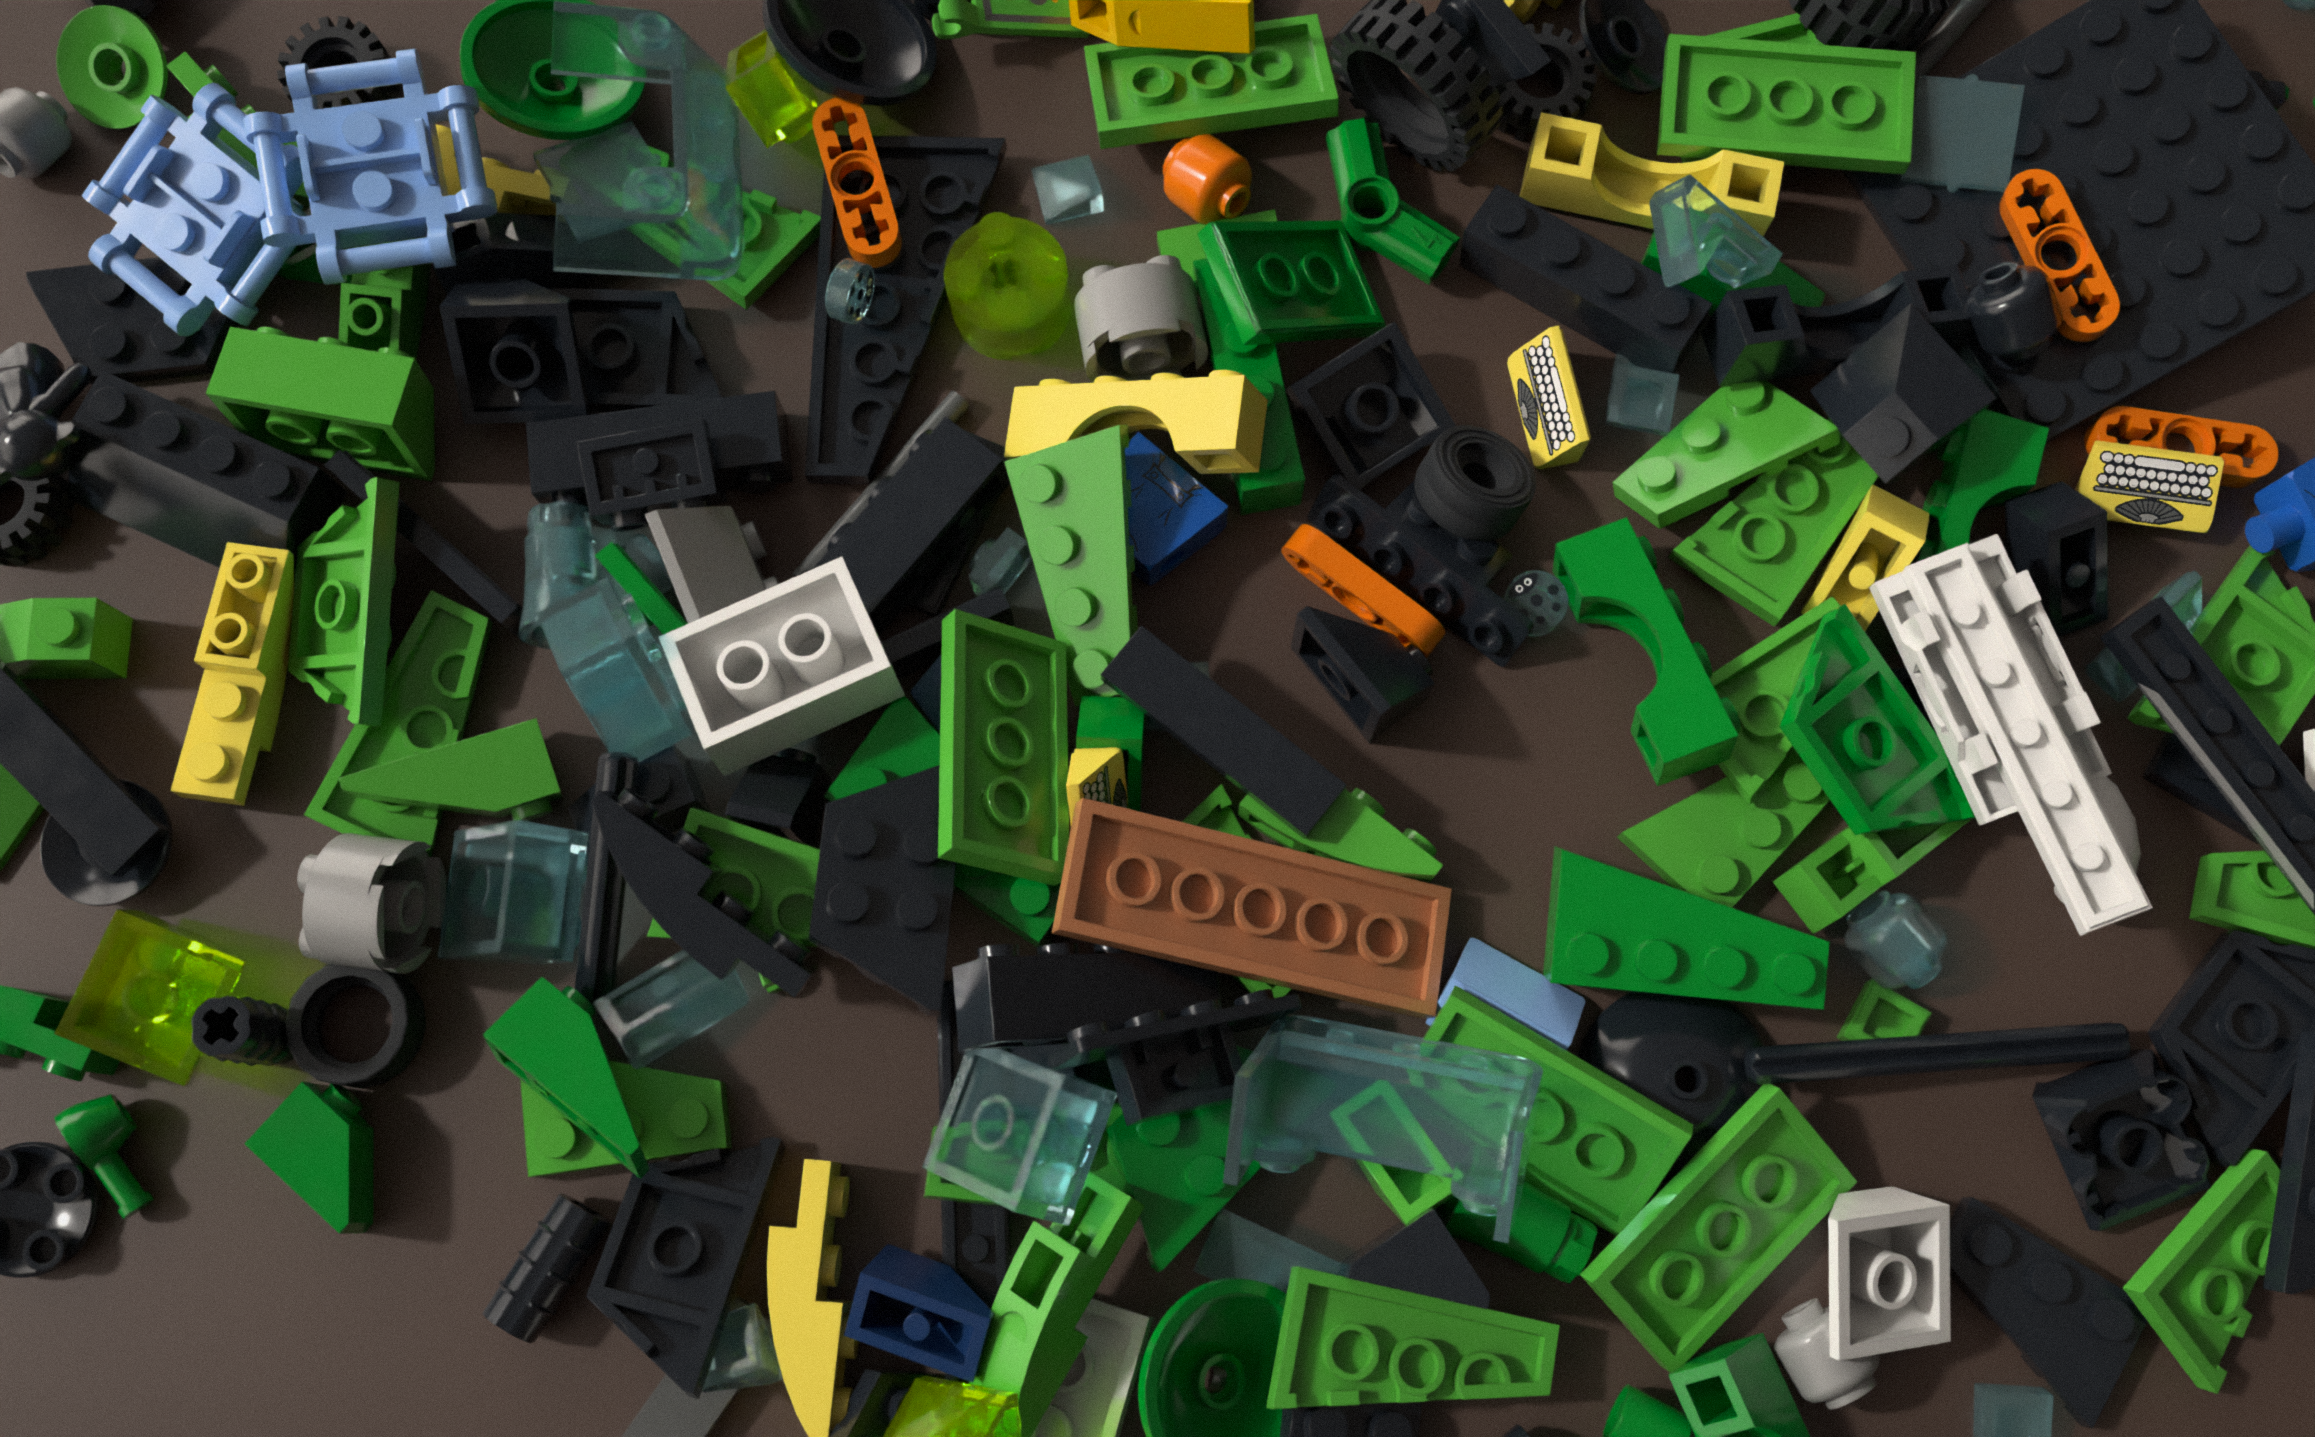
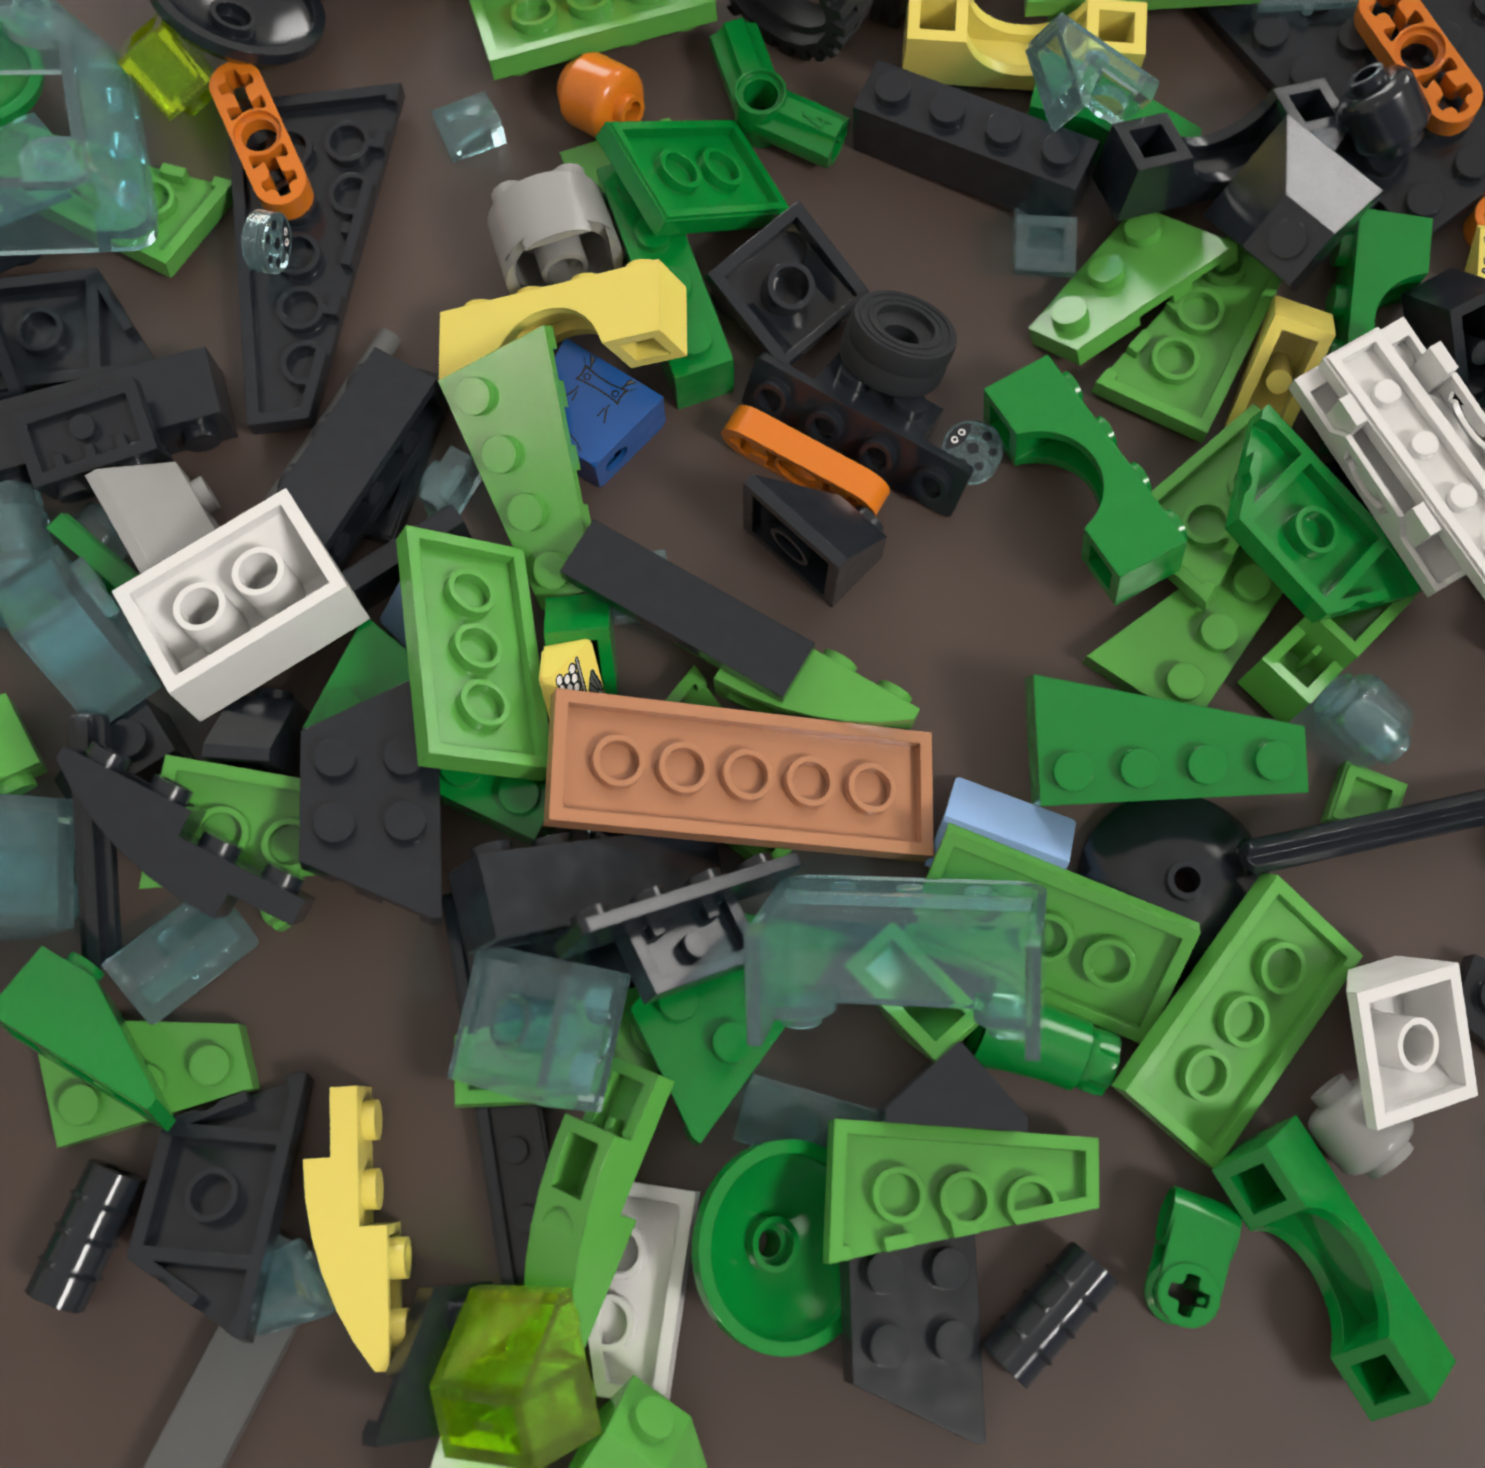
camera: 10 degrees left, 0 degrees up
(920, 1313) = (464, 1222): dark blue slope -> none
(1008, 287) = (421, 220): clear neon green brick -> none
(1549, 400) = (957, 259): slope -> none

